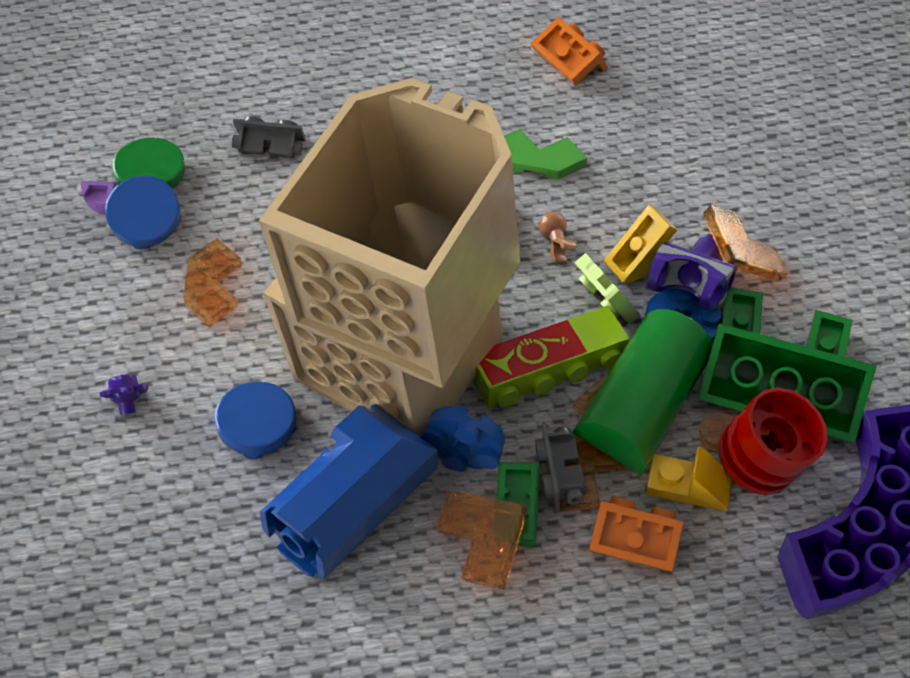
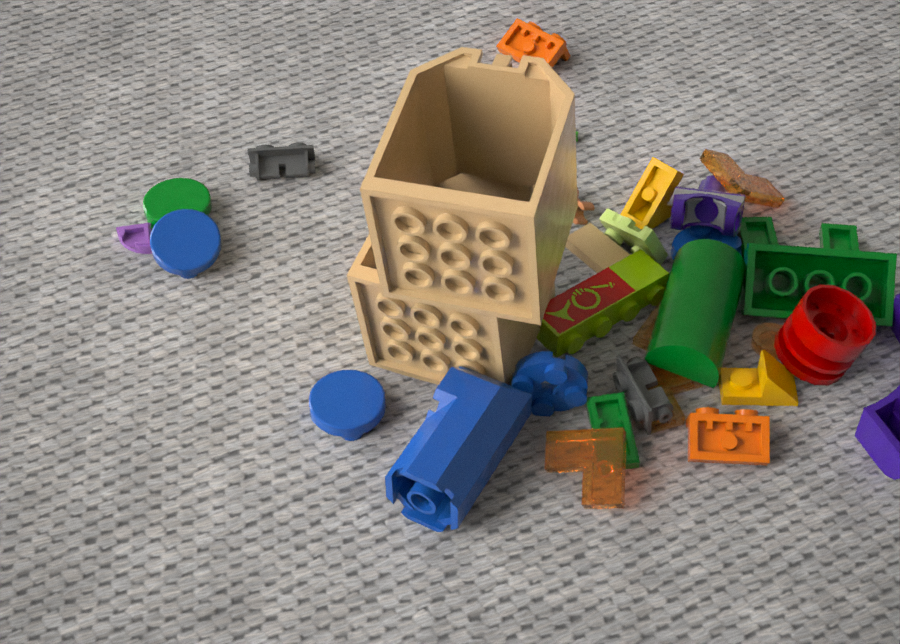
camera: 10 degrees left, 5 degrees down
(124, 391) = (216, 401): dark purple plant -> none
(202, 289) = (261, 302): clear orange tile -> none
(565, 292) = (595, 248): none -> tan tile

